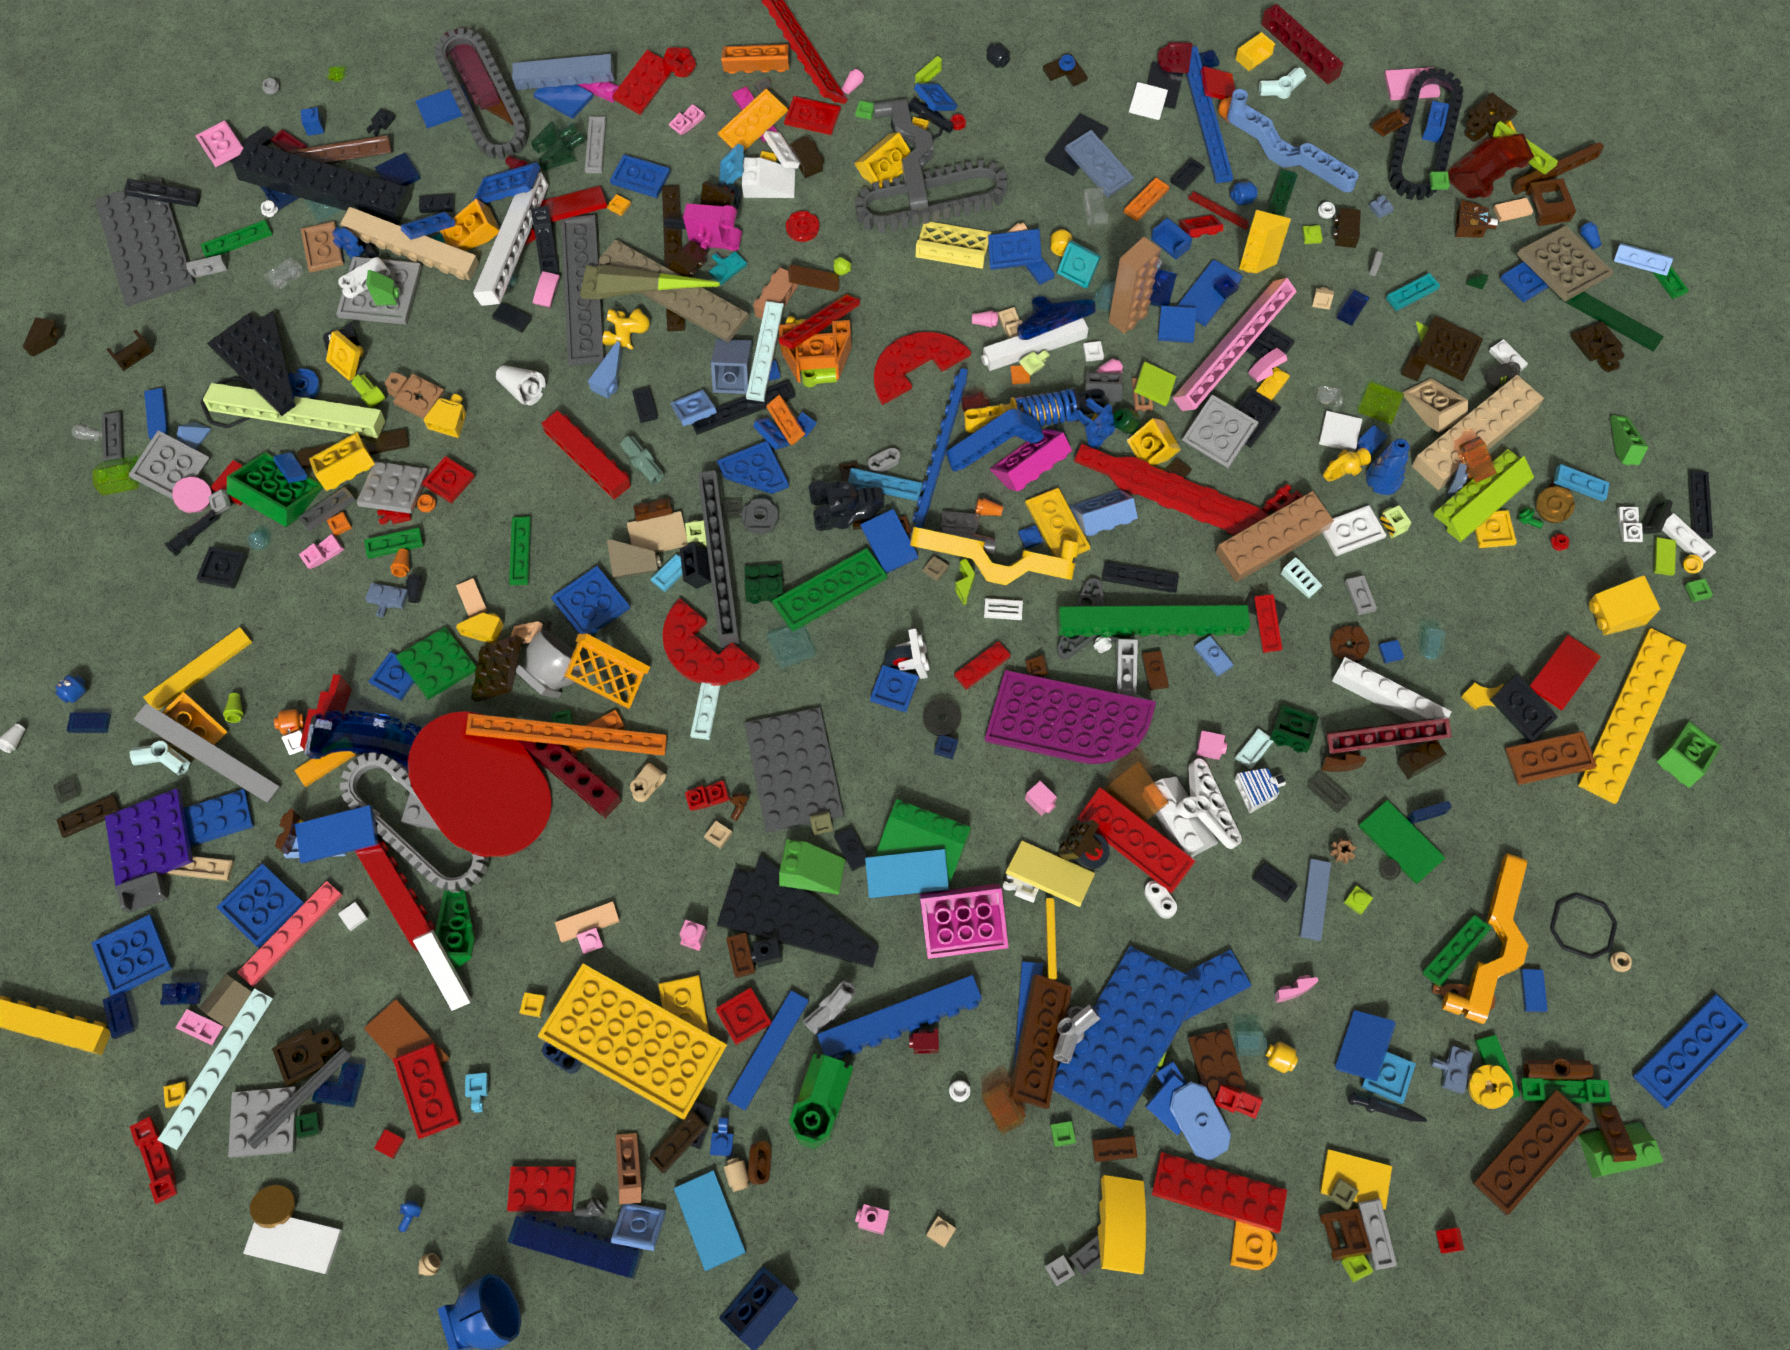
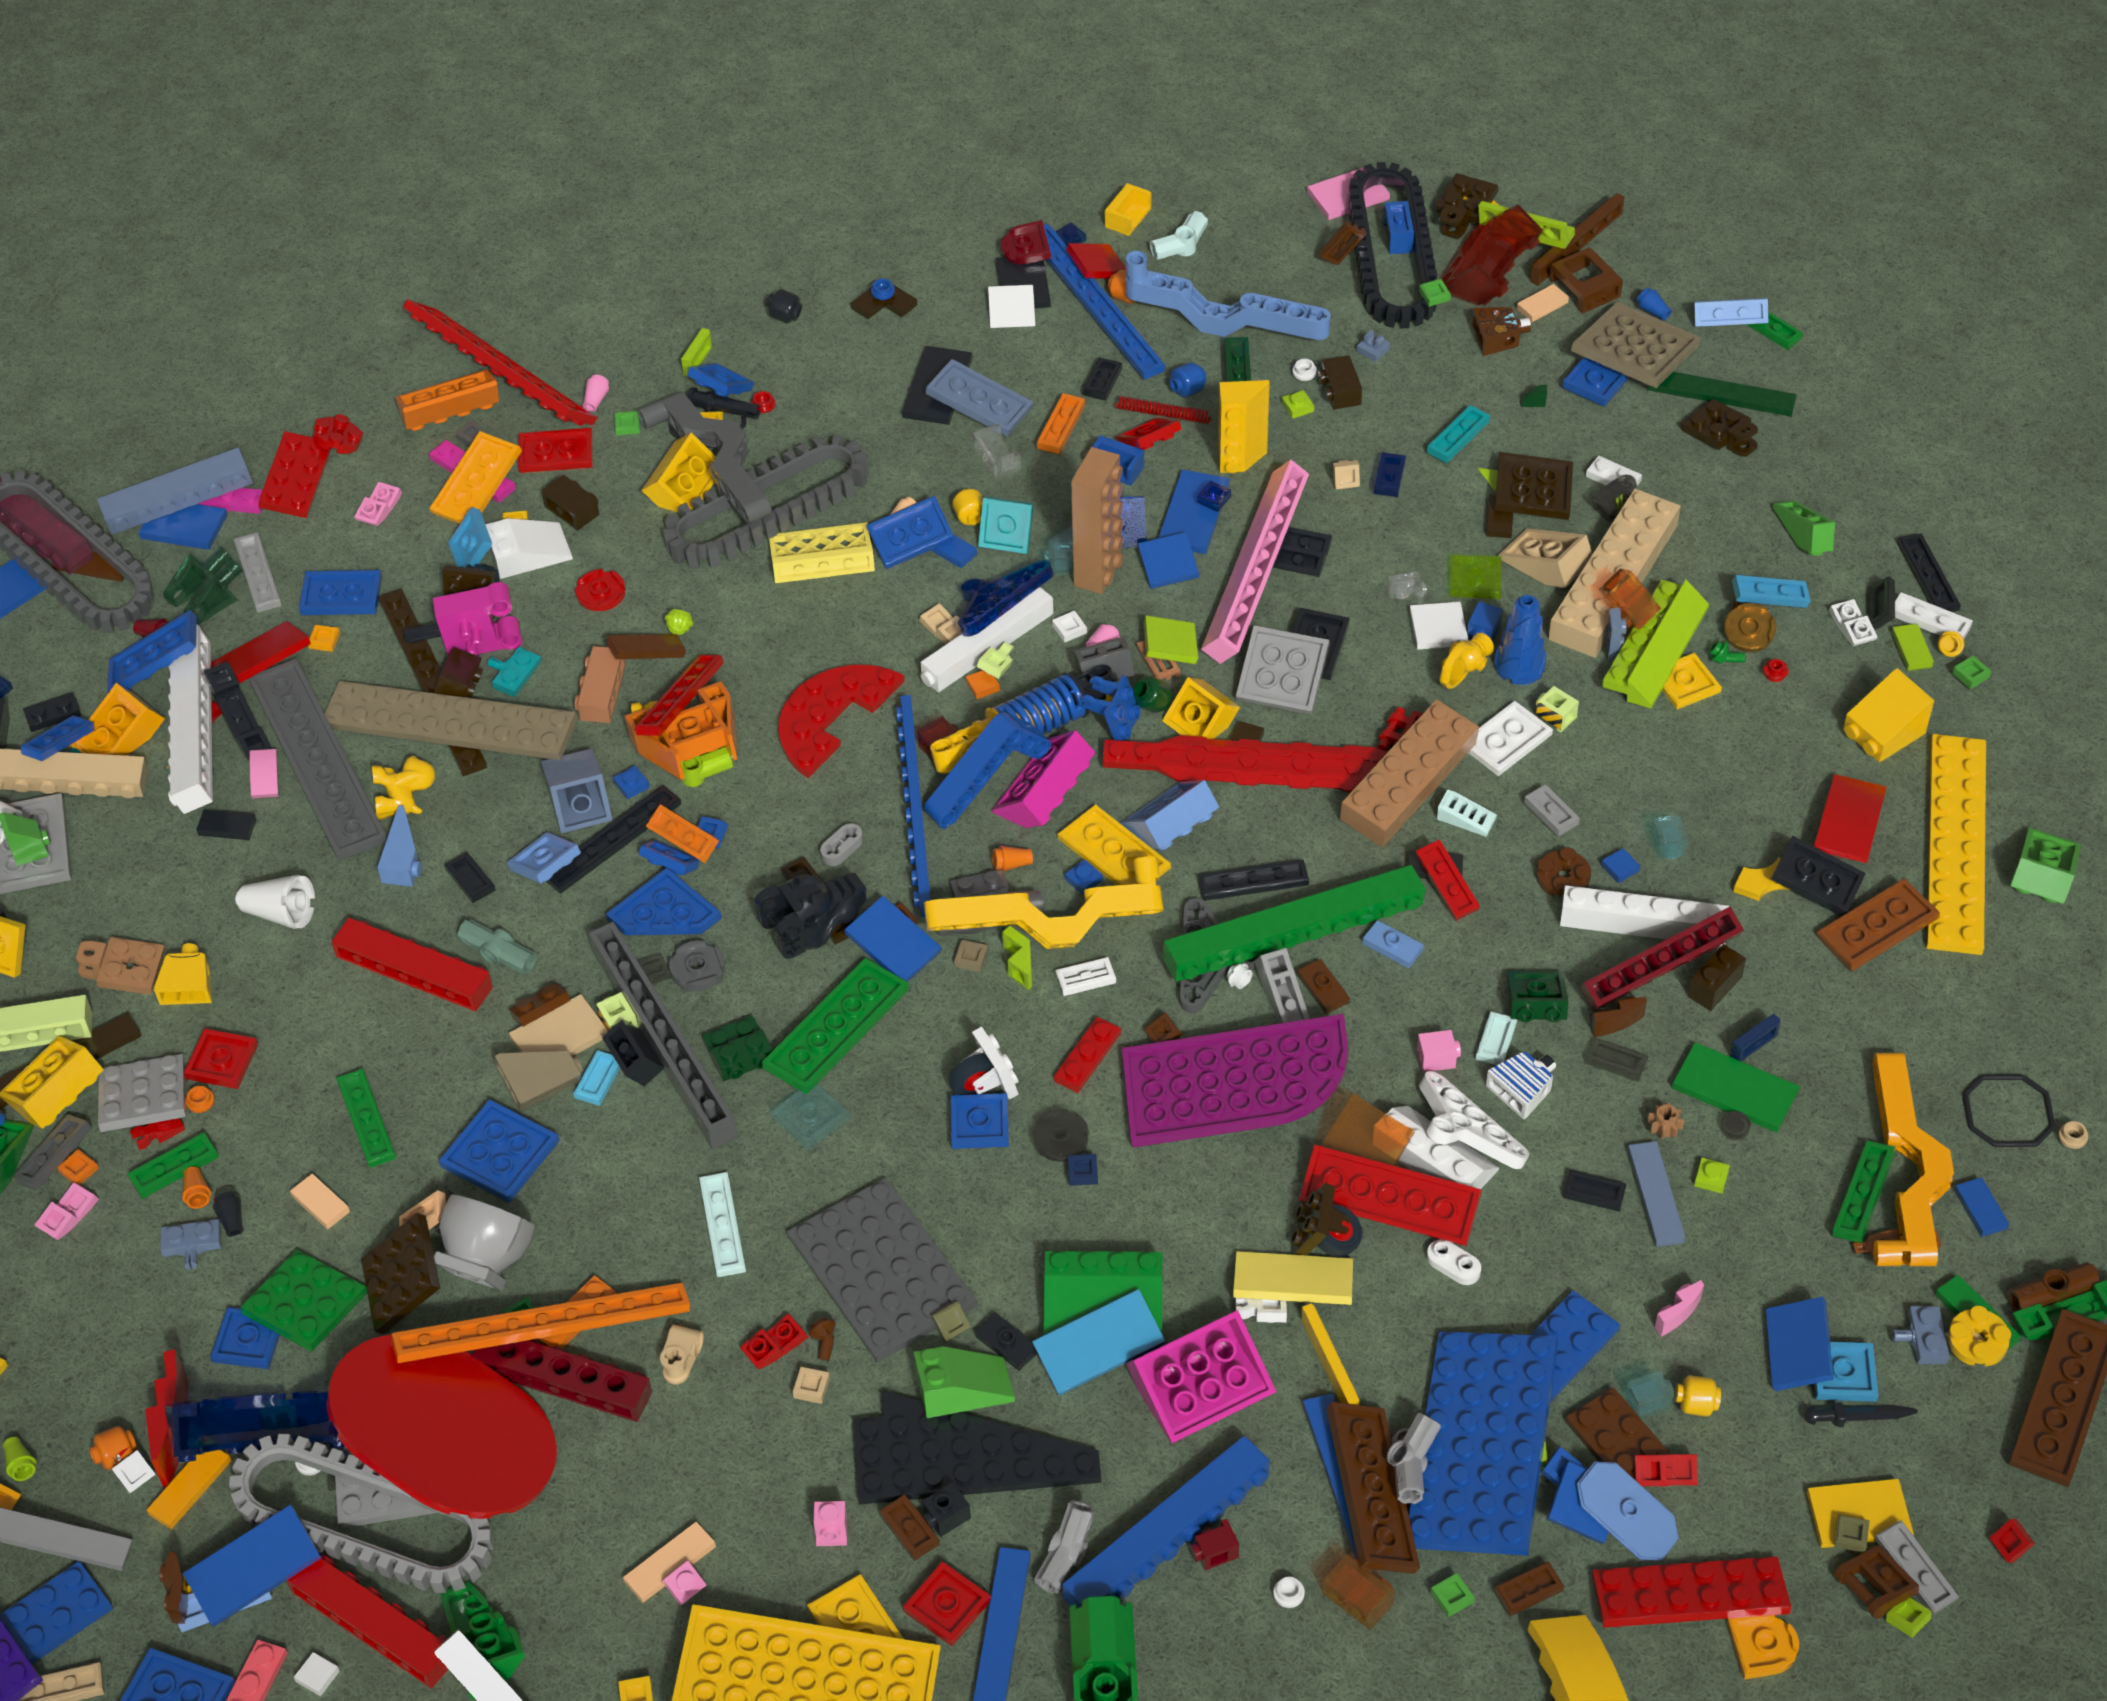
camera: 20 degrees left, 15 degrees down
(370, 394) = (50, 981): lime piece -> none
(482, 627) = (352, 1232): yellow slope -> none
(608, 654) = (565, 1197): light orange fence -> none
(617, 281) = (365, 730): olive plate -> none
(694, 658) = (683, 1173): red plate -> none
(764, 351) = (617, 756): light aqua tile -> none
(781, 149) = (531, 503): white plate -> none
(889, 485) = (869, 870): dark azure tile -> none
(986, 318) = (908, 628): bright pink cone -> none
(1041, 798) = (1240, 1190): bright pink brick -> none
(1264, 366) = (1305, 577): bright pink slope -> none
(1273, 384) = (1326, 593): yellow plate -> none
(1302, 43) = (1186, 183): dark red brick -> none
(1375, 263) = (1396, 414): light grey tile -> none

